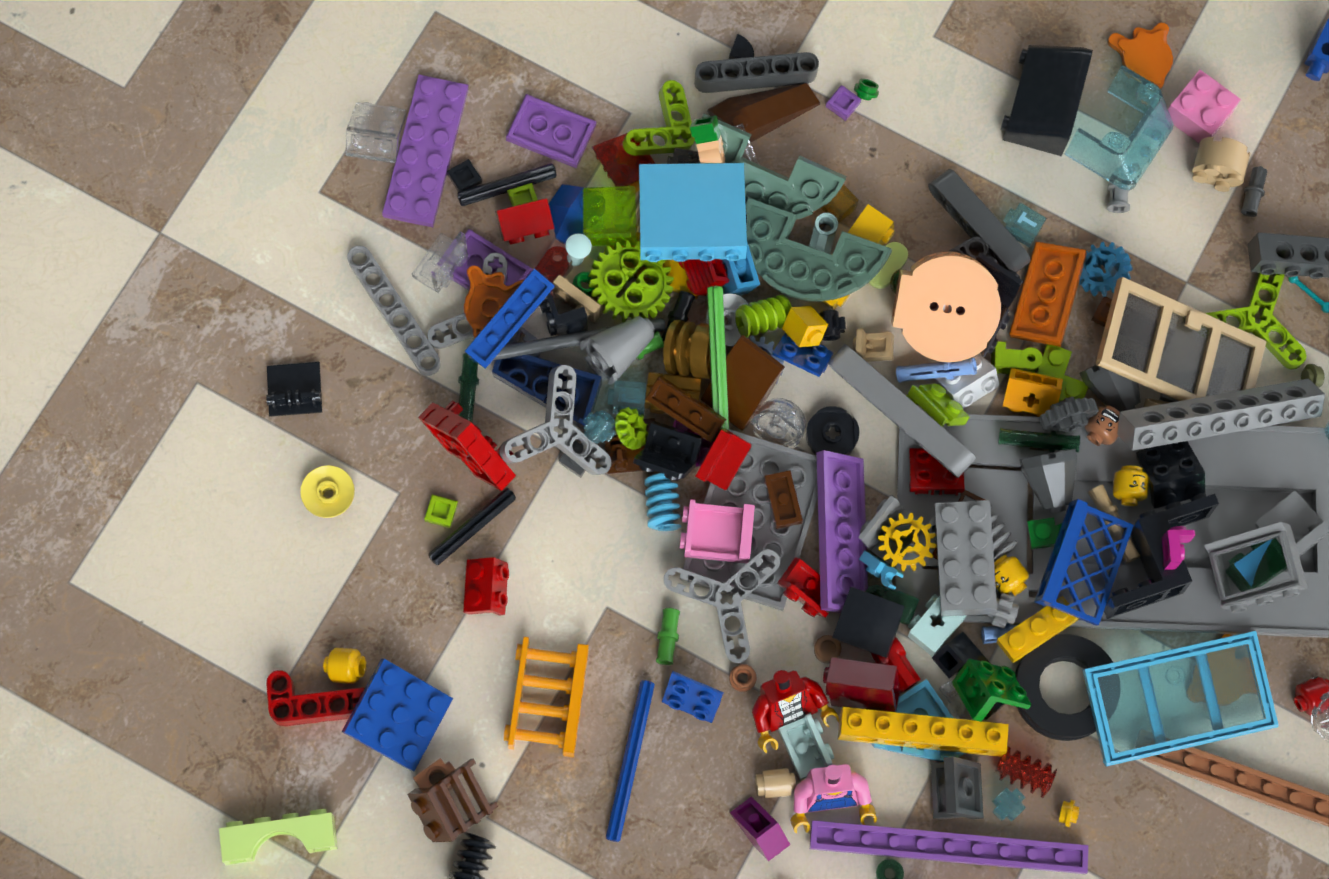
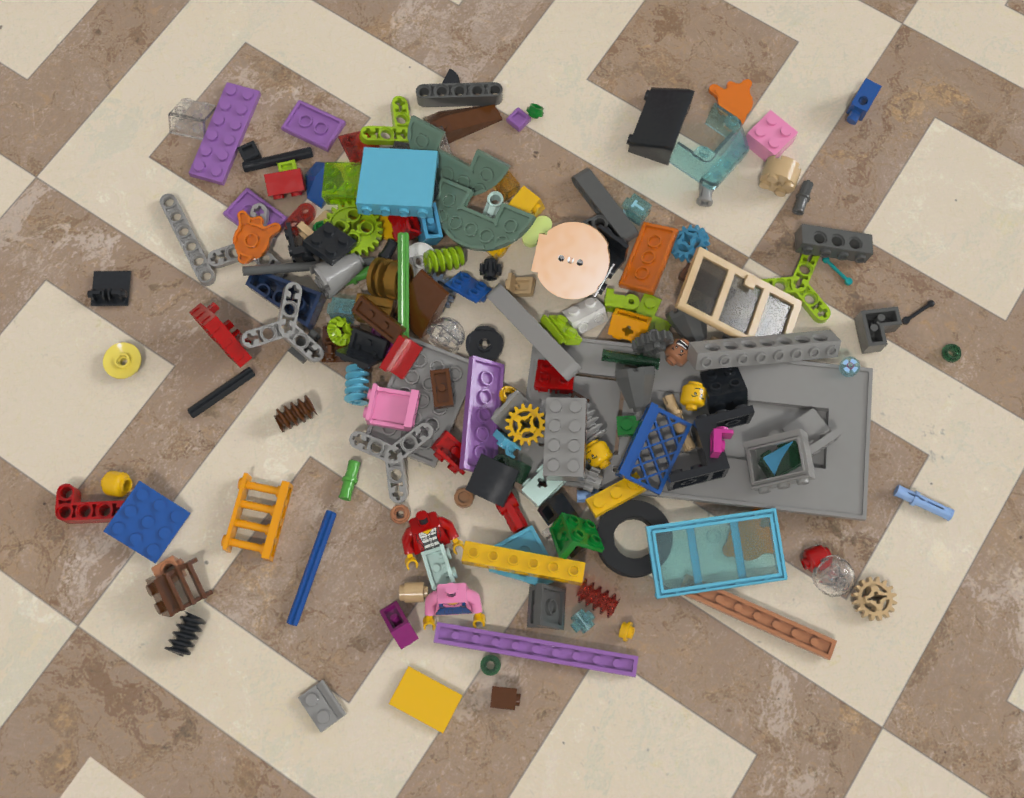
camera: 10 degrees right, 0 degrees up
(241, 842) = (25, 604): yellowish green arch -> none
(441, 261) = (223, 207): clear bracket -> none
(441, 511) = (201, 380): lime tile -> none
(468, 383) = (232, 291): clear green pin -> none
(486, 586) = (225, 435): red bracket -> none
(509, 318) = (254, 245): blue fence -> none
(577, 247) = (316, 203): light aqua pin -> none
(581, 548) = (294, 413): none -> reddish brown piece
(599, 426) = (316, 327): clear light blue gear -> none
(606, 306) = (329, 243): none -> black plate
(692, 697) = (360, 525): blue hinge -> none
(708, 139) = (414, 133): leg -> none
(805, 326) = (471, 268): yellow brick -> none
(862, 685) = (482, 526): dark red brick -> none
(877, 497) = (506, 389): none -> yellow plate
(936, 370) = (562, 305): light blue pin -> none
(1313, 373) = (835, 327): olive plate -> none

